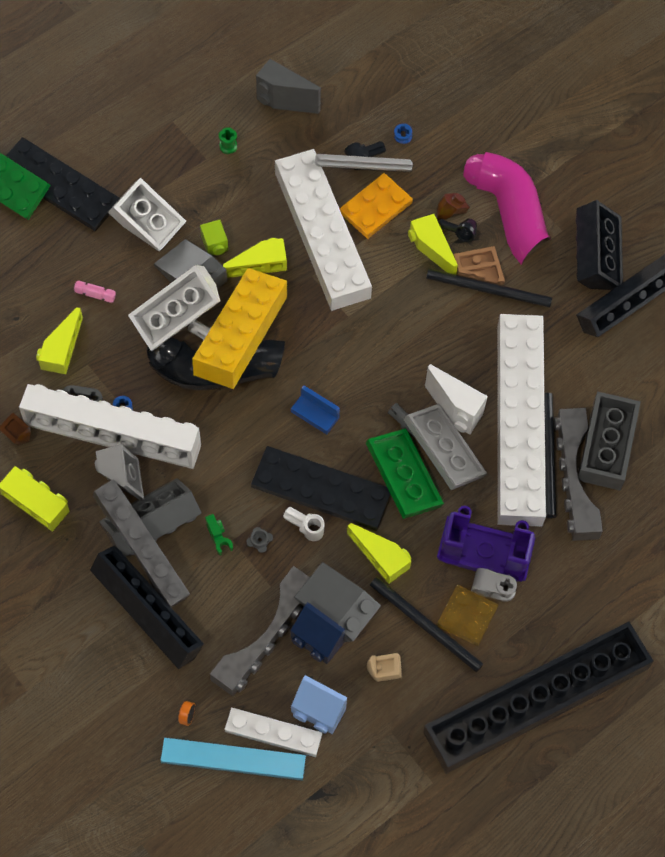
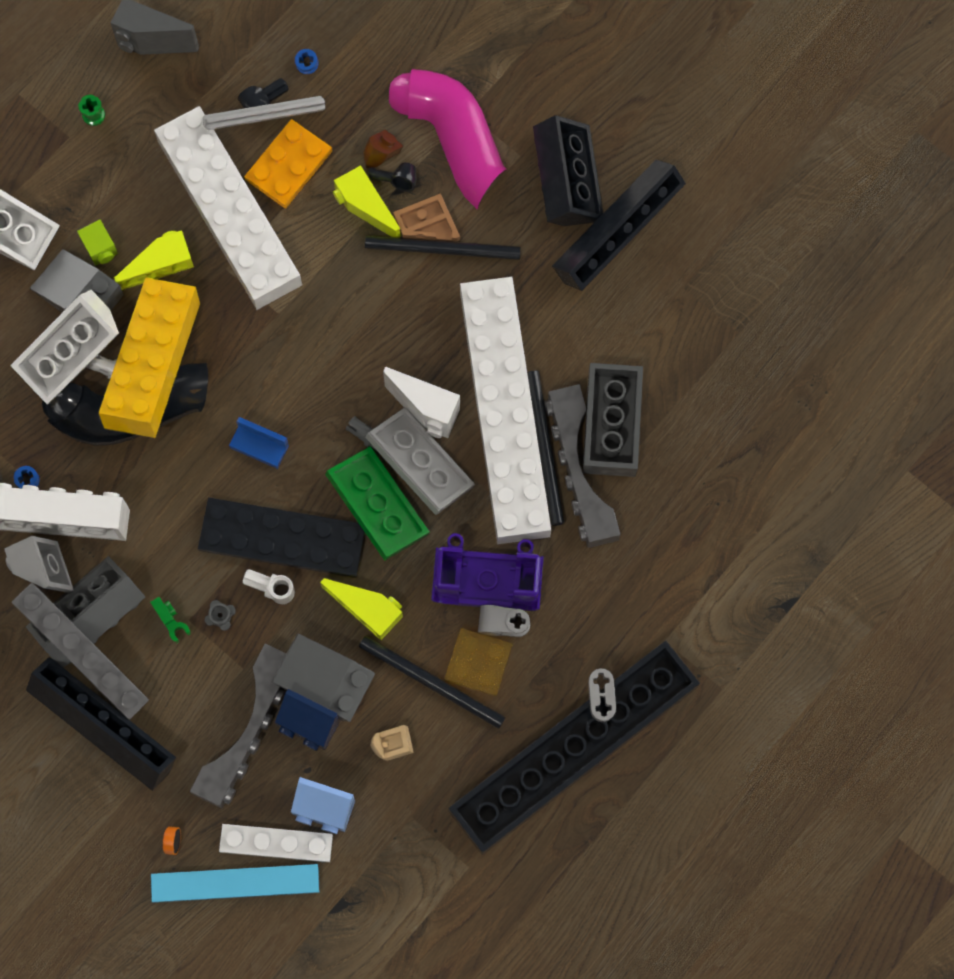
camera: 10 degrees left, 10 degrees up
(563, 655) = (608, 695): none -> light grey beam

